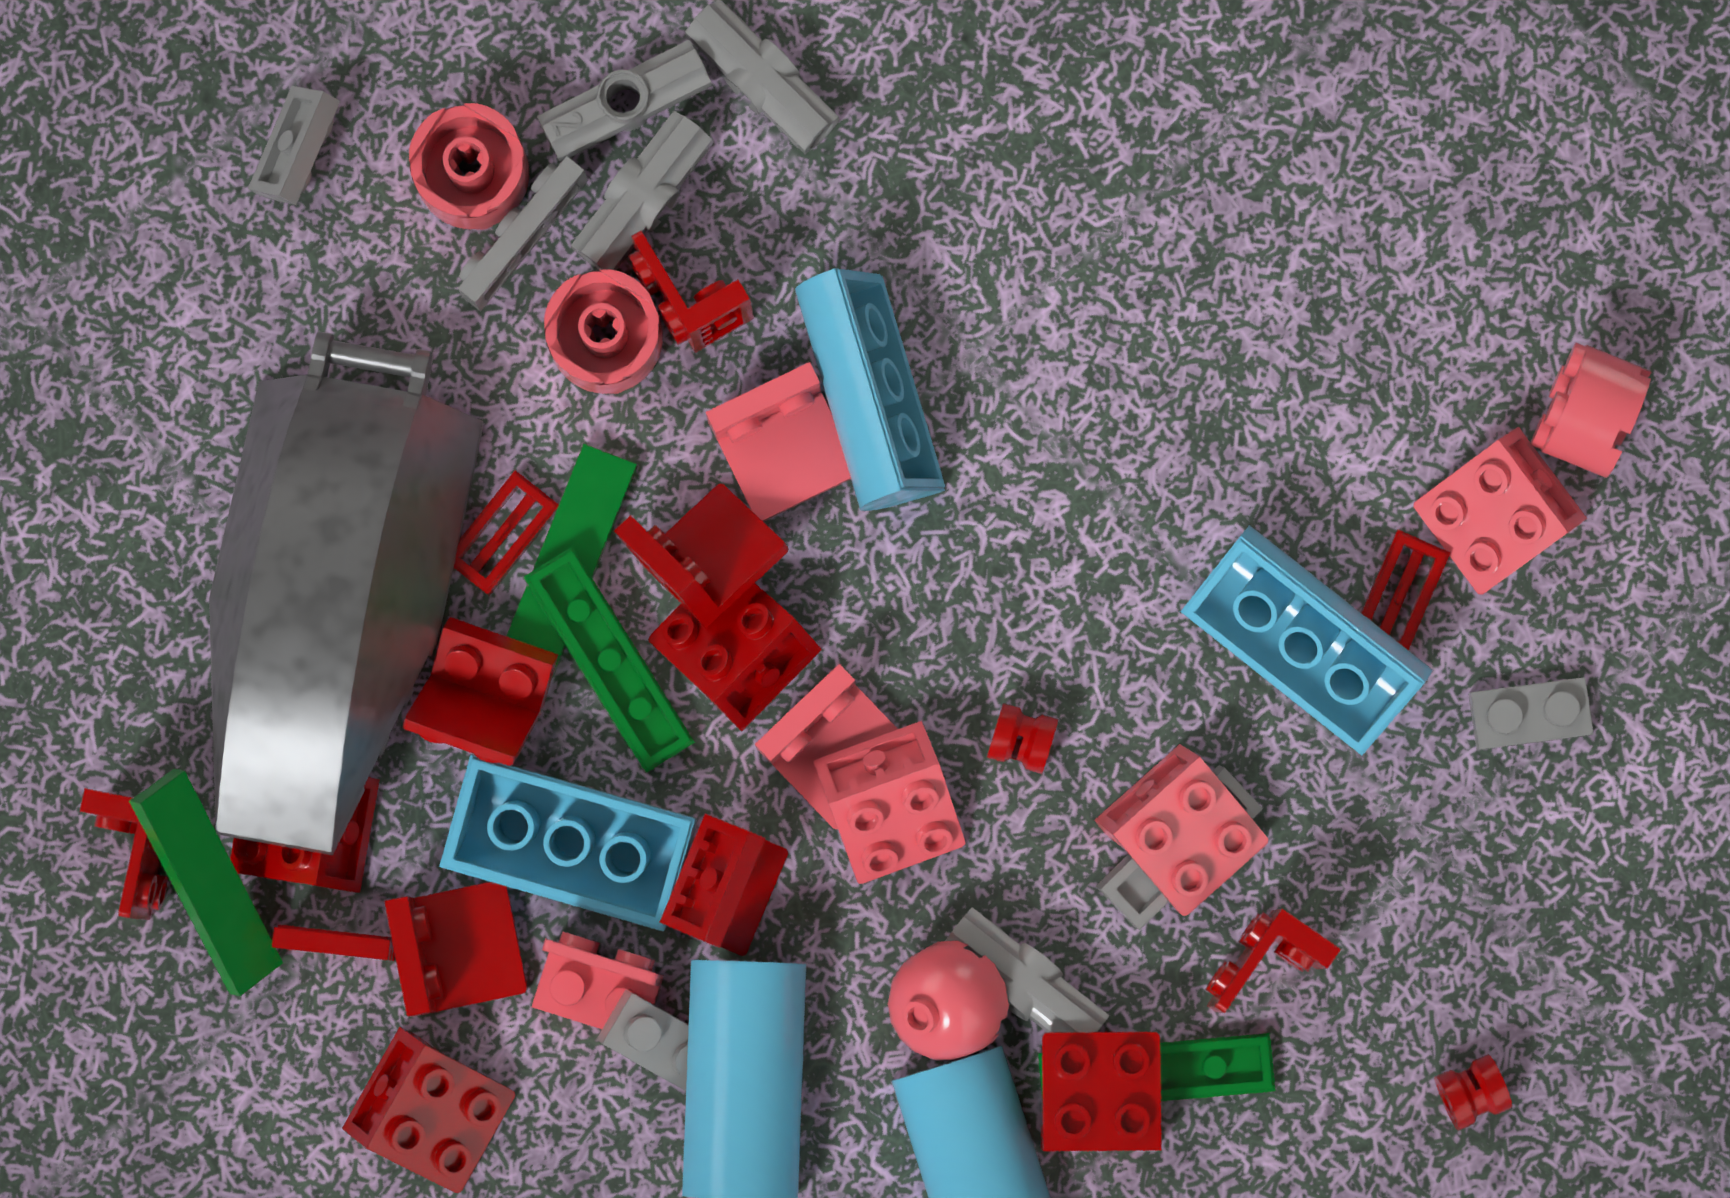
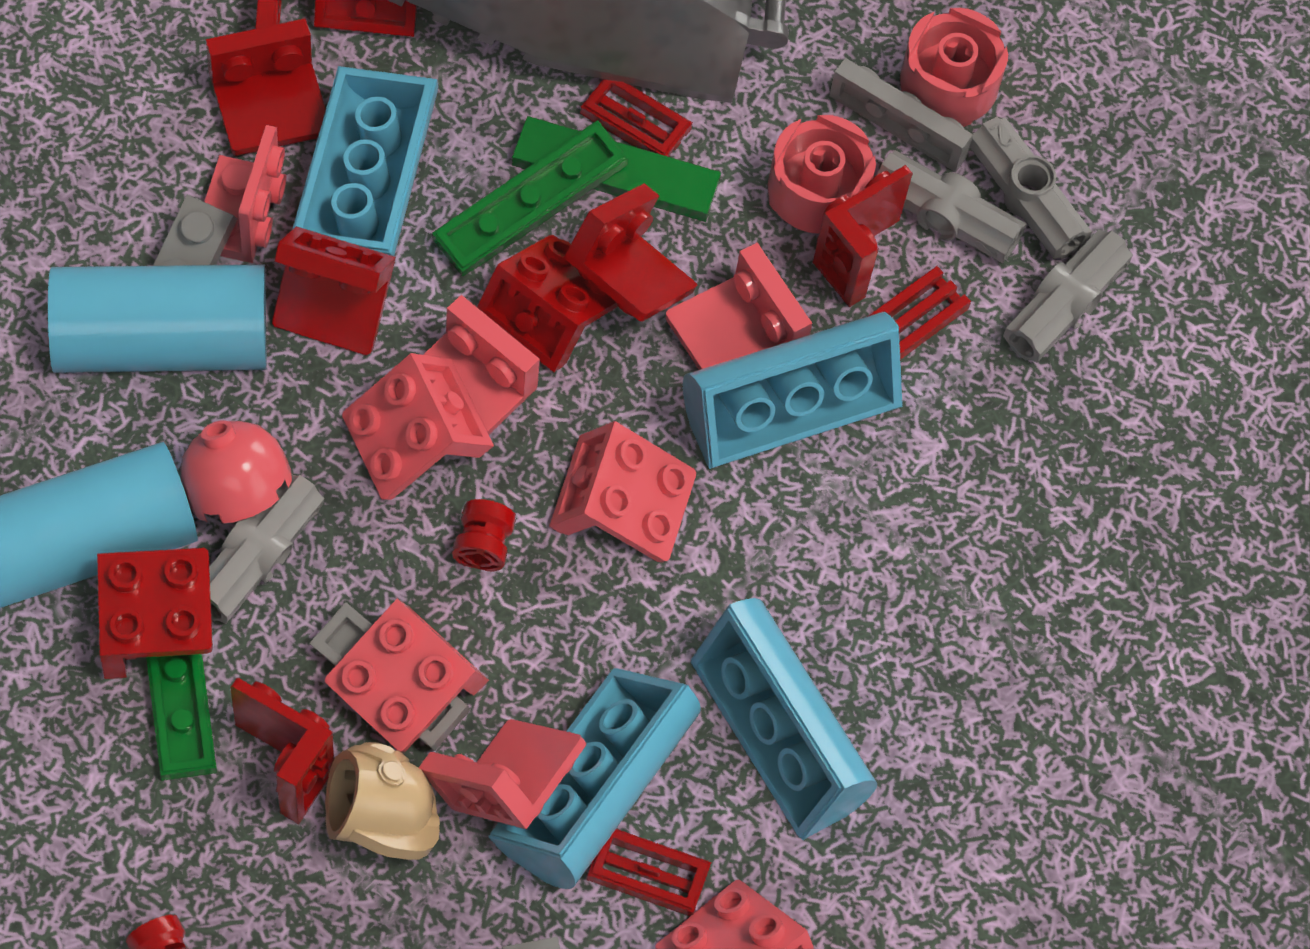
camera: 75 degrees right, 20 degrees down
(428, 1112) = (121, 83): red bracket -> none
(482, 693) = (489, 102): red bracket -> none
(744, 208) = (944, 291): none -> red tile
(977, 586) = (625, 490): none -> coral bracket
(1255, 440) = (782, 719): none -> medium azure brick
(1302, 726) = (511, 775): none -> coral bracket
(1330, 863) = (390, 806): none -> tan helmet

